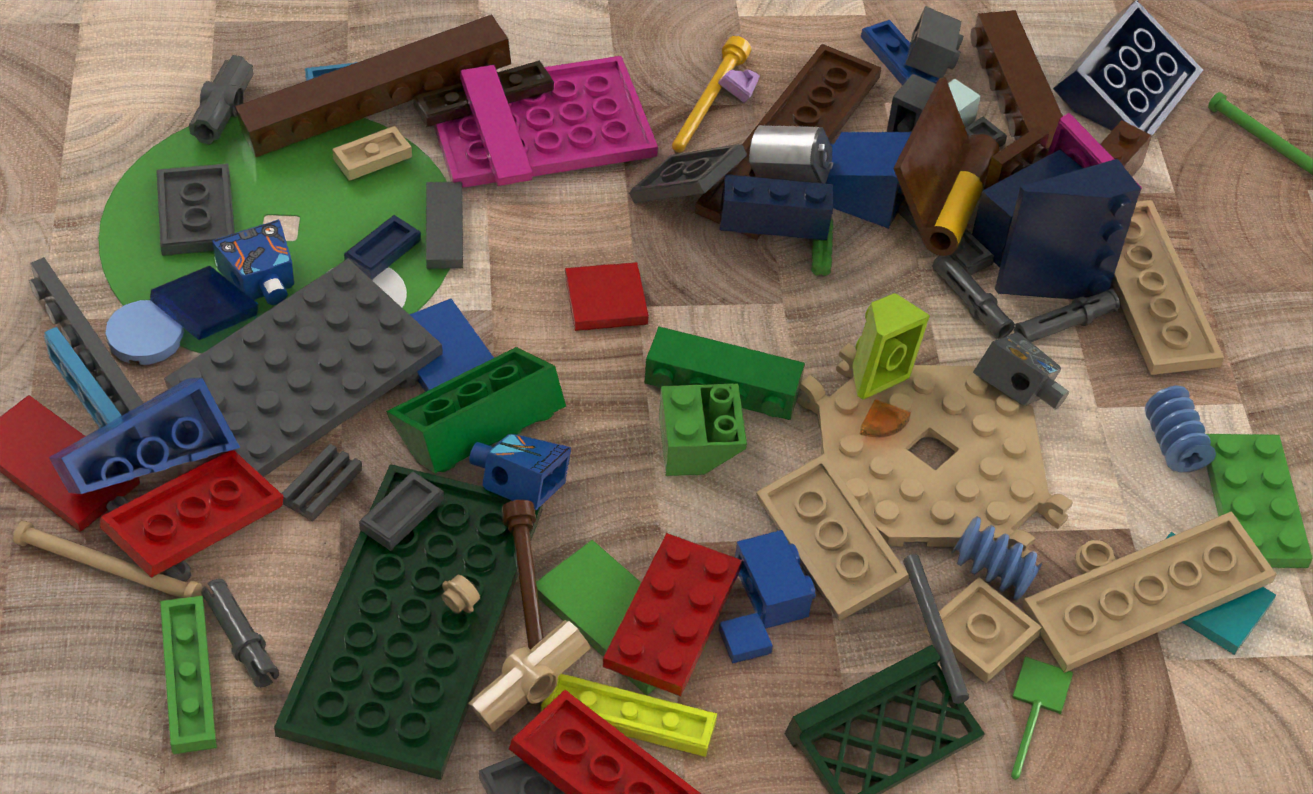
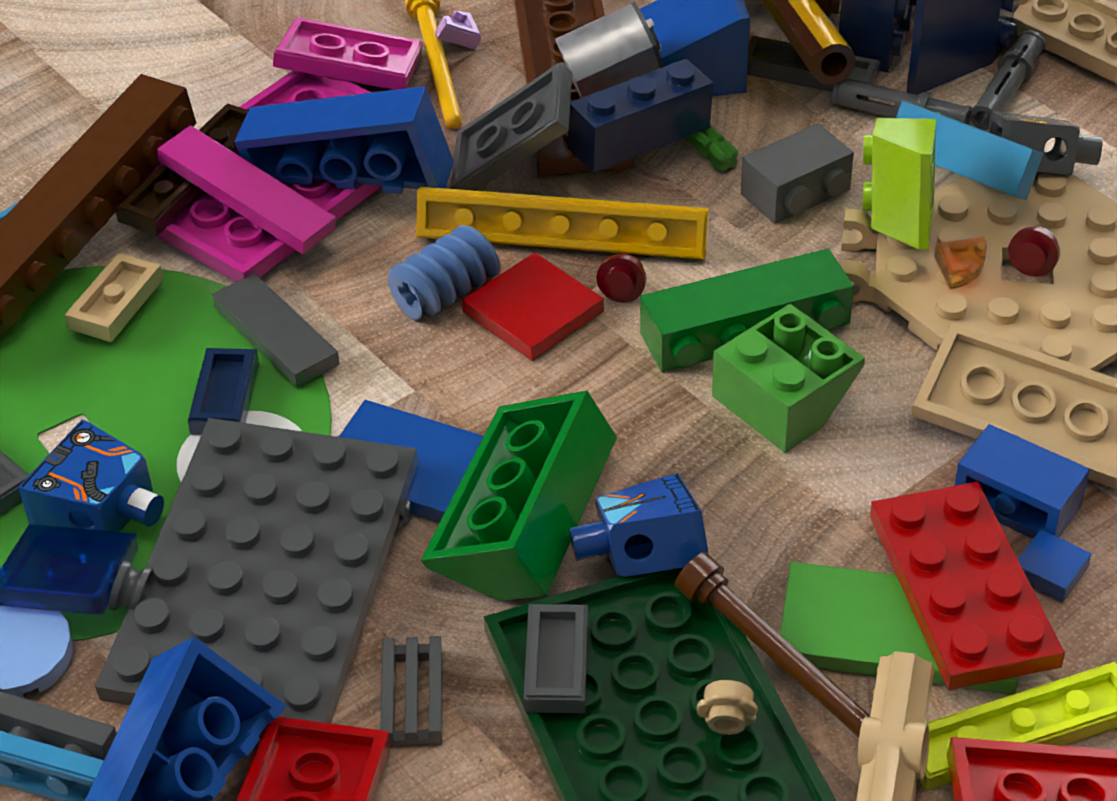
camera: 30 degrees left, 5 degrees down
(224, 330) = (128, 586): none -> dark grey bush
(568, 243) = (443, 272): none -> medium blue piece
(580, 128) = (350, 140): none -> blue wedge
(651, 65) = (348, 54): none -> dark pink tile
(671, 253) = (565, 222): none -> yellow tile
(672, 308) = (621, 278): none -> dark red plate
(843, 298) = (796, 173): none -> dark grey brick
(931, 440) = (1034, 251): none -> dark red plate
(963, 348) = (979, 153): none -> dark azure tile

